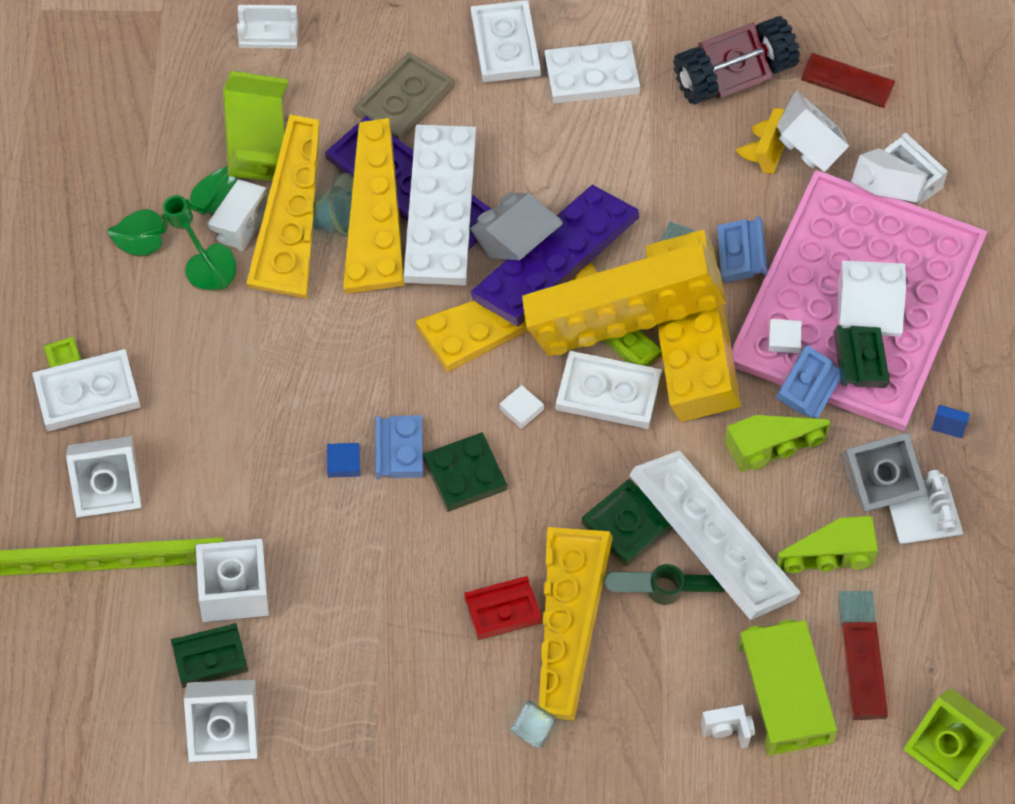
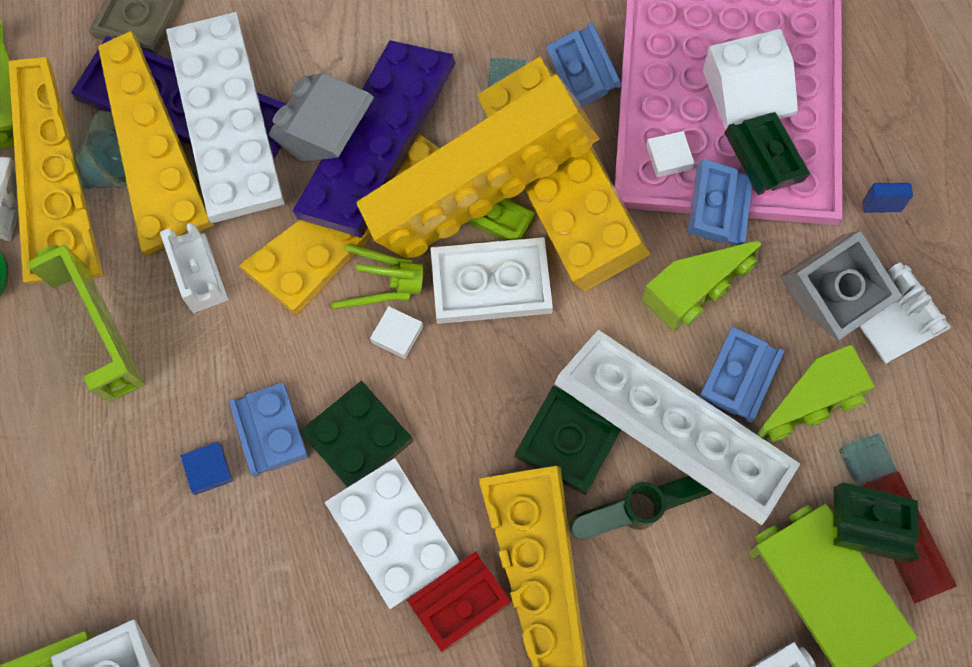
camera: 15 degrees left, 10 degrees up
(295, 370) = (121, 376): none -> lime panel
(380, 313) = (194, 268): none -> white hinge
(468, 544) = (392, 533): none -> white plate
(541, 364) = (402, 275): none -> lime plant
(780, 516) = (741, 374): none -> medium blue plate
(838, 644) = (876, 522): none -> dark green plate

